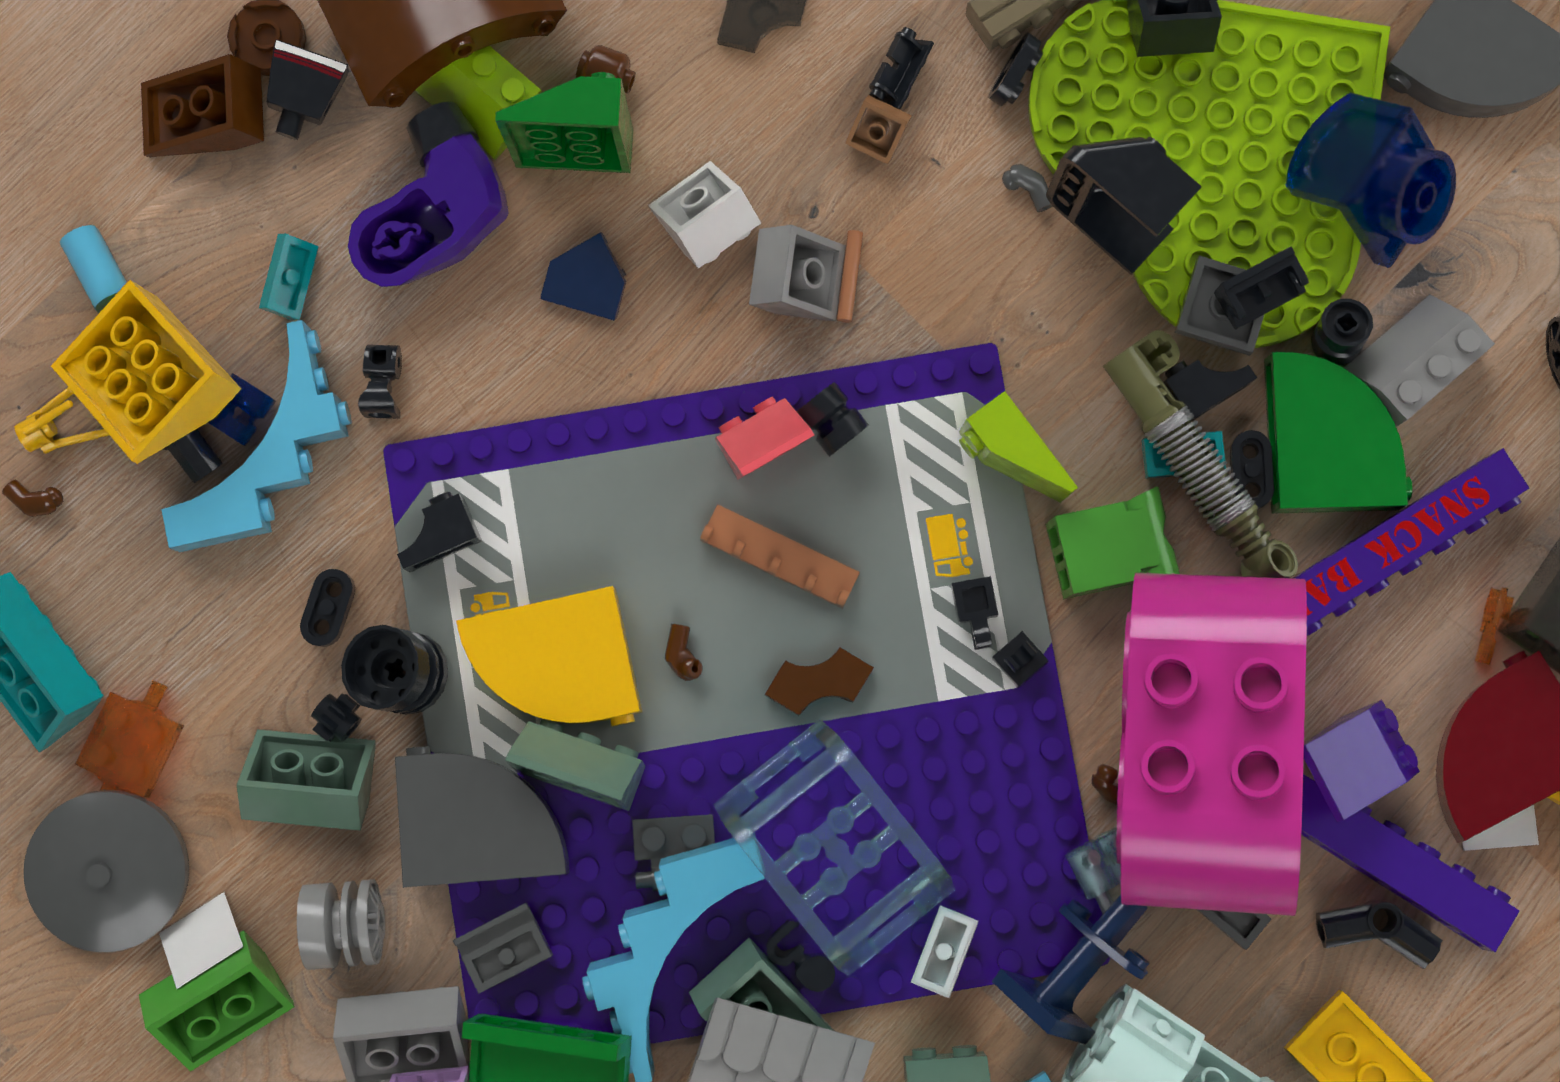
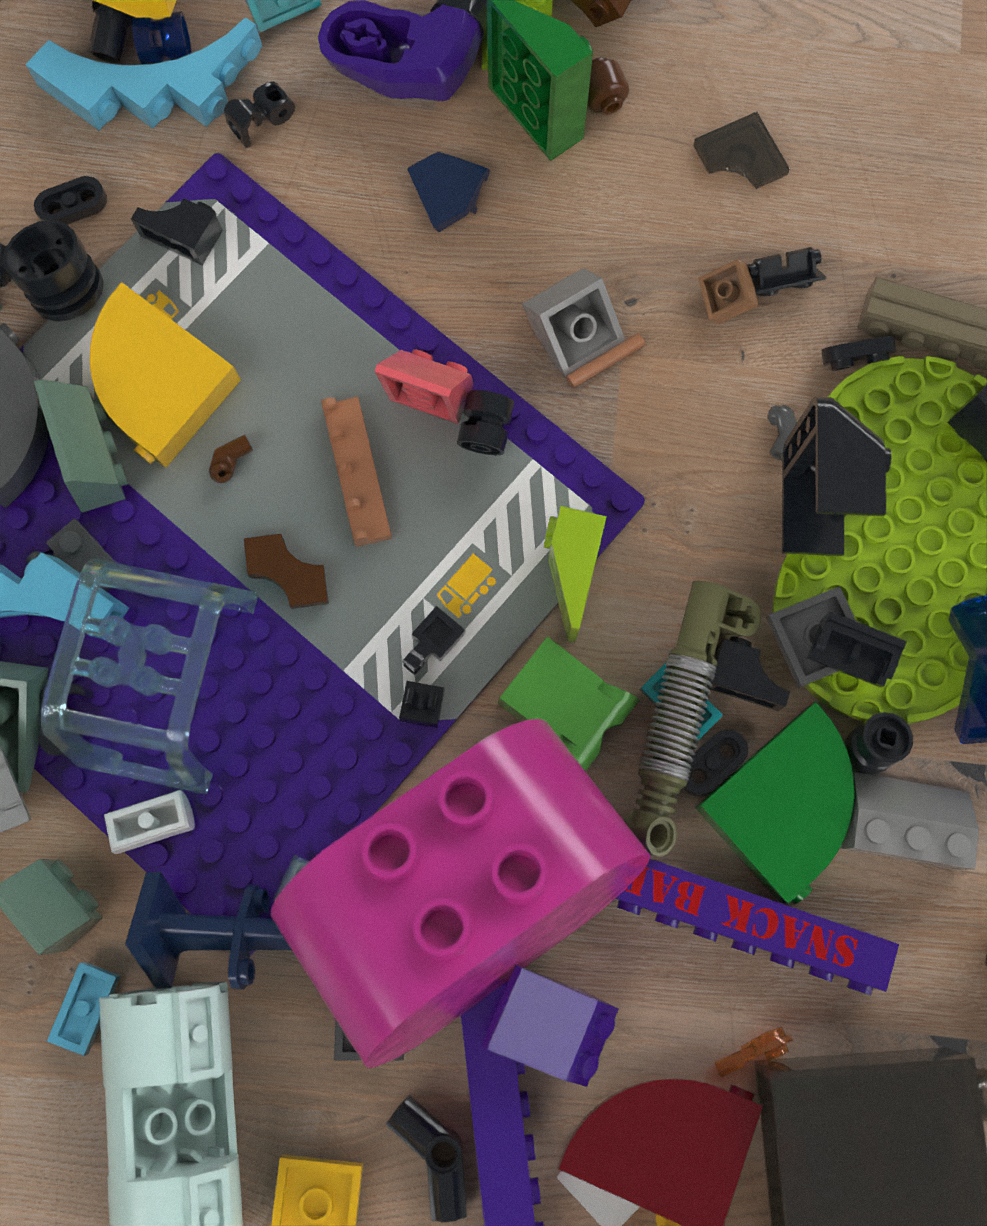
camera: 50 degrees right, 5 degrees down
(705, 214) = (561, 228): white slope -> none

